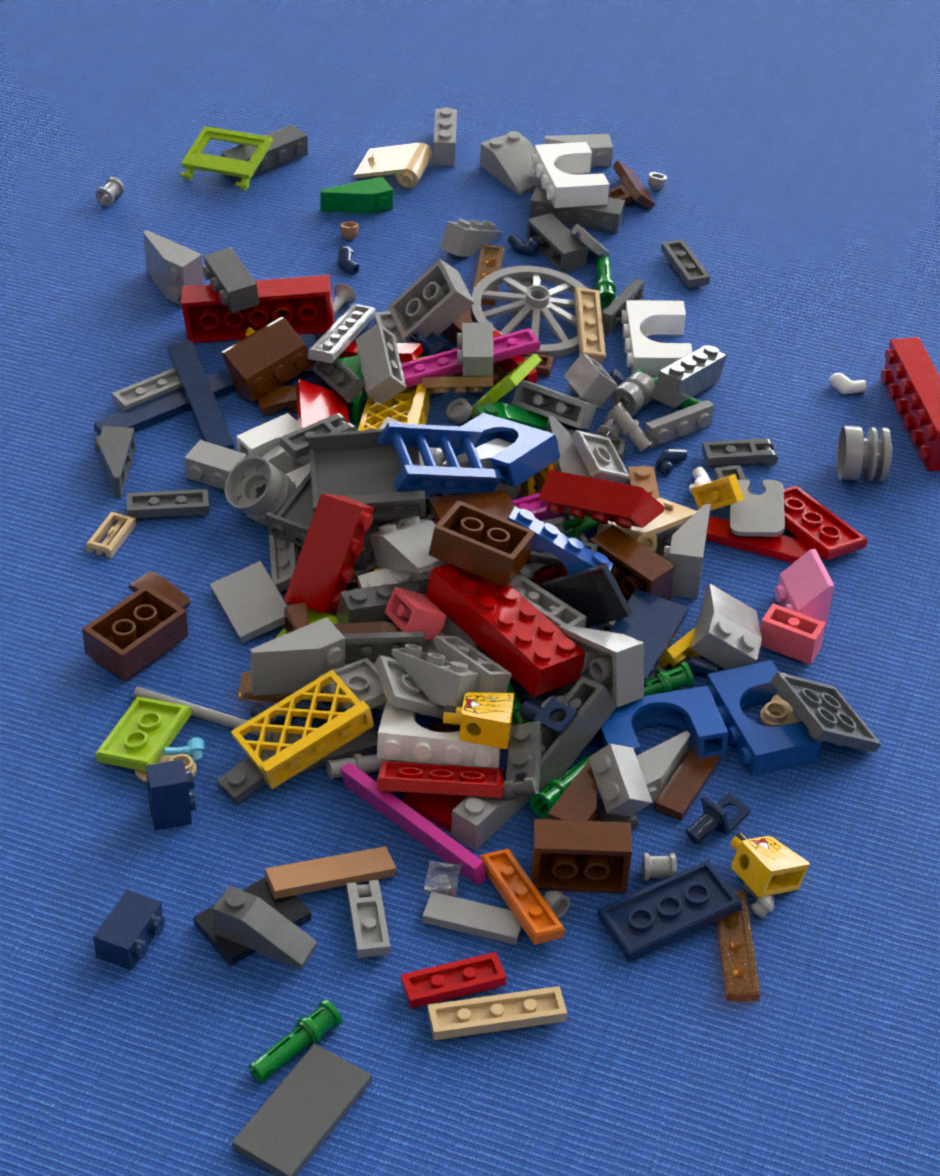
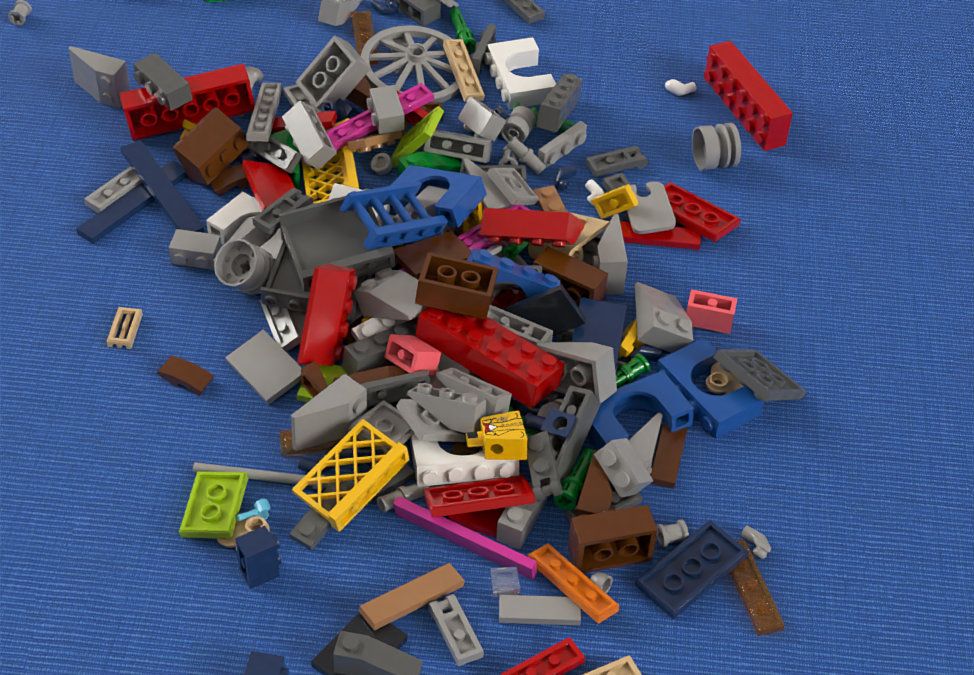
camera: 15 degrees left, 5 degrees up
(116, 453) = (105, 255): dark grey slope -> none
(135, 632) = (178, 414): reddish brown brick -> none
(168, 503) = (165, 291): dark grey plate -> none
(345, 260) = (242, 45): dark blue arm -> none
(349, 230) = (237, 16): medium nougat hinge -> none
(715, 816) = (702, 481): dark blue bracket -> none
(767, 865) = (756, 514): yellow torso -> none
(806, 587) = (710, 270): bright pink slope -> none

